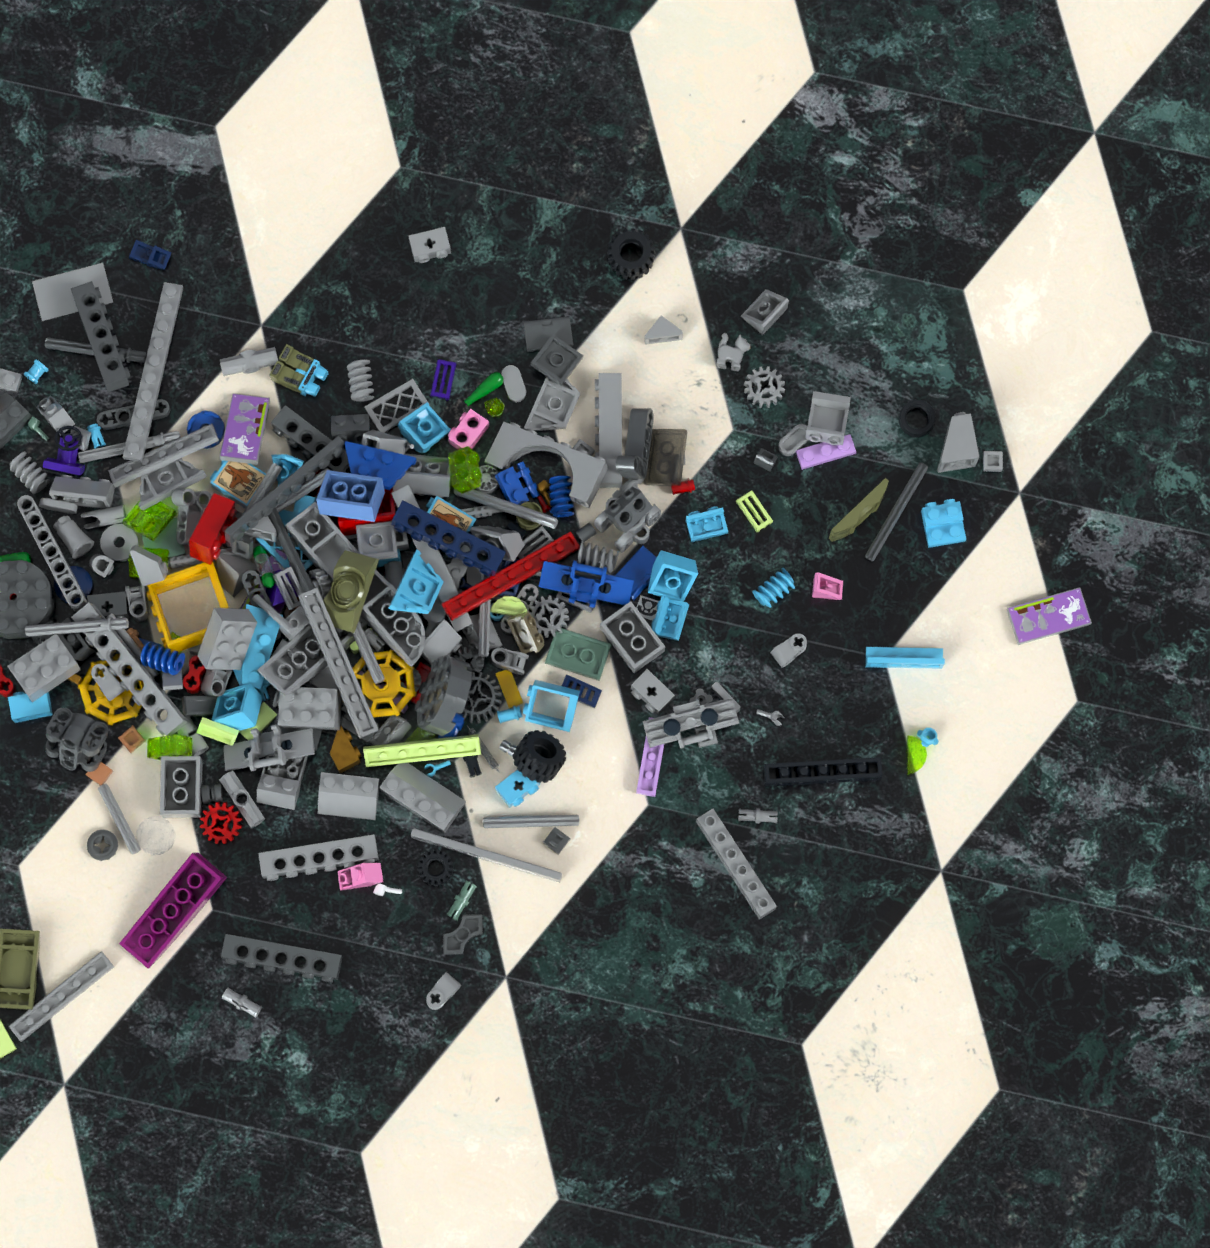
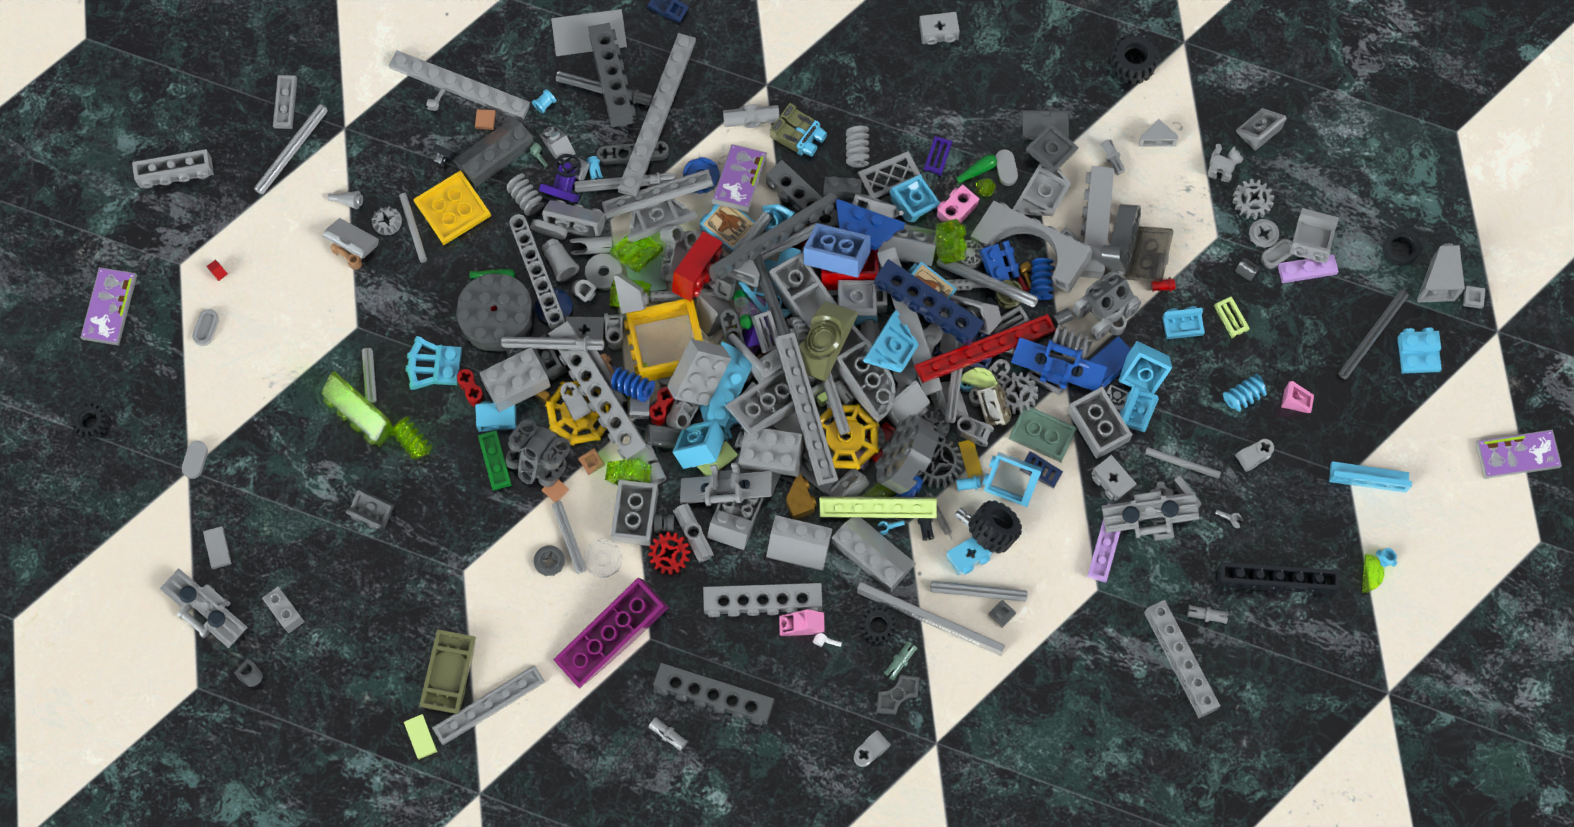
camera: 10 degrees right, 5 degrees down
(34, 750) = (494, 460): none -> green plate
(217, 731) = (677, 463): yellowish green tile -> none
(620, 359) = (1113, 156): none -> light grey axle
(719, 666) = (1182, 462): none -> light grey bar
(779, 412) = (1266, 226): none -> light grey gear
(859, 513) = (1338, 329): olive slope -> none

